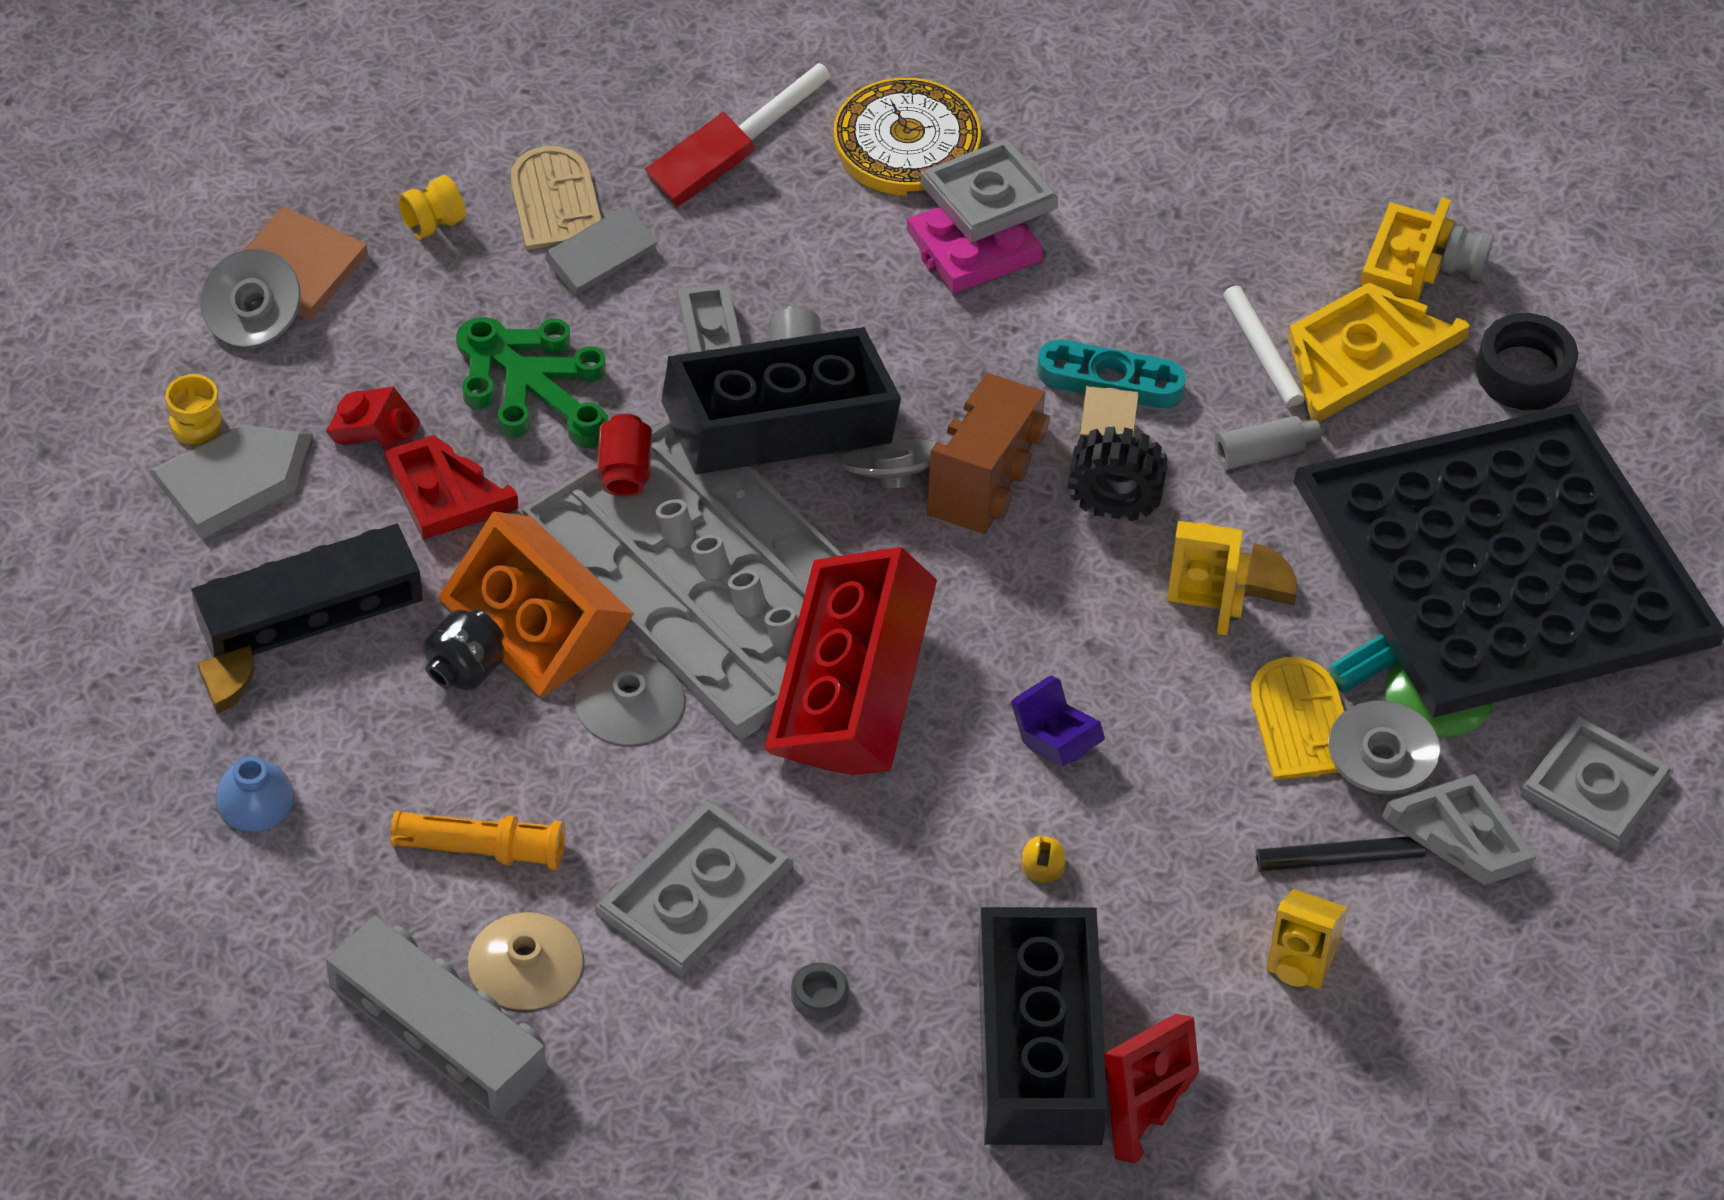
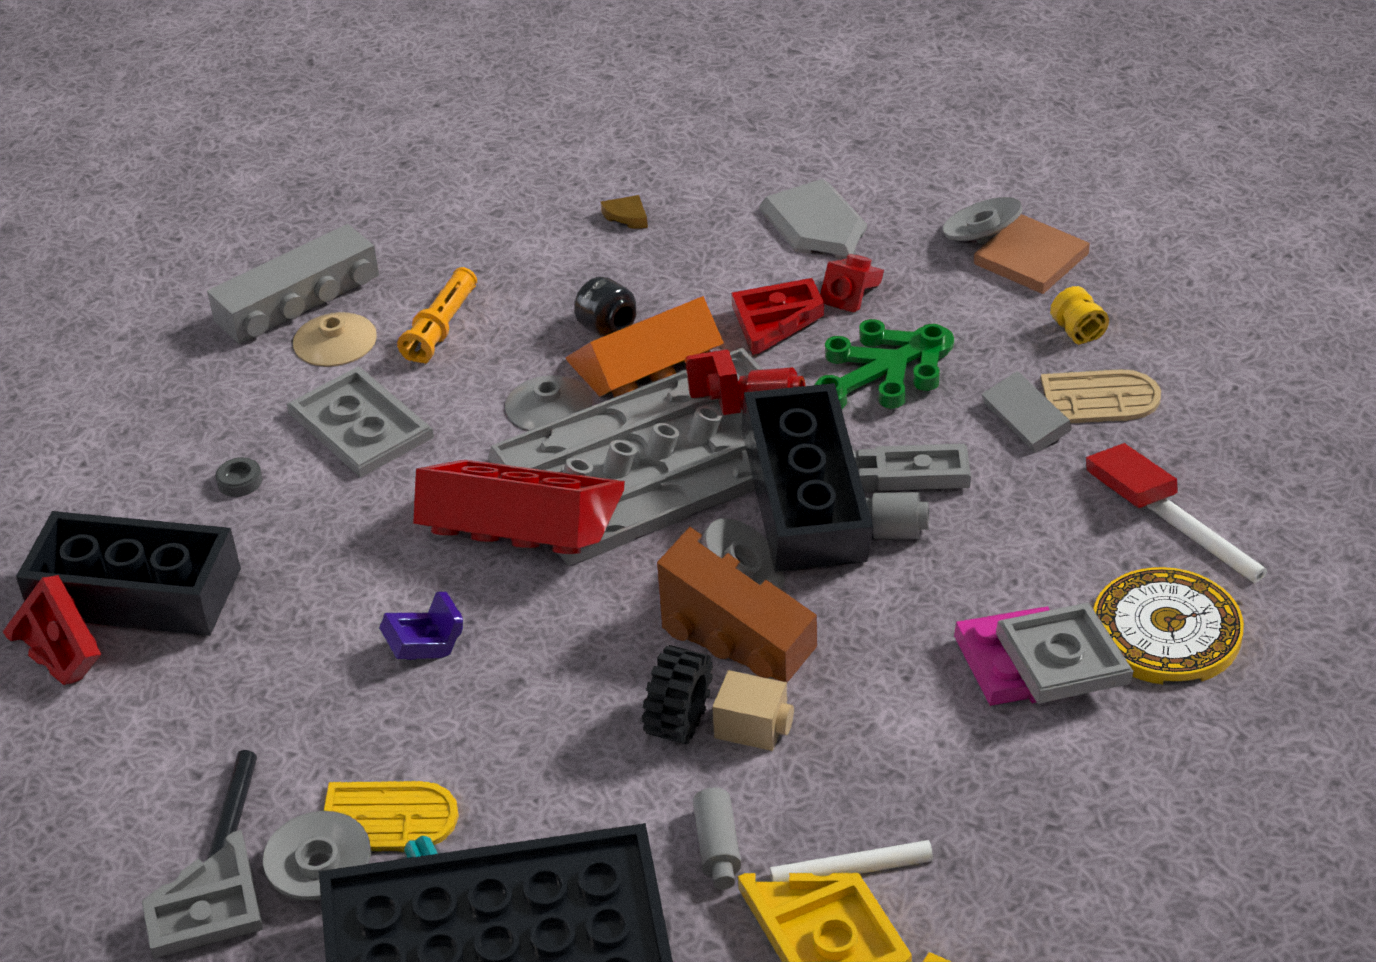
camera: 105 degrees right, 10 degrees down
(193, 409) = (874, 192): yellow wheel -> none
(254, 795) = (520, 218): medium blue brick -> none
(308, 593) = (684, 240): black brick -> none
(623, 493) = (714, 376): none -> red bracket
(1056, 861) = (299, 617): yellow hinge -> none
(1102, 358) = (828, 715): teal beam -> none
(1207, 568) = (535, 743): yellow bracket -> none
(1270, 576) = (553, 815): pearl gold tile -> none
(1305, 938) = (133, 746): yellow slope -> none

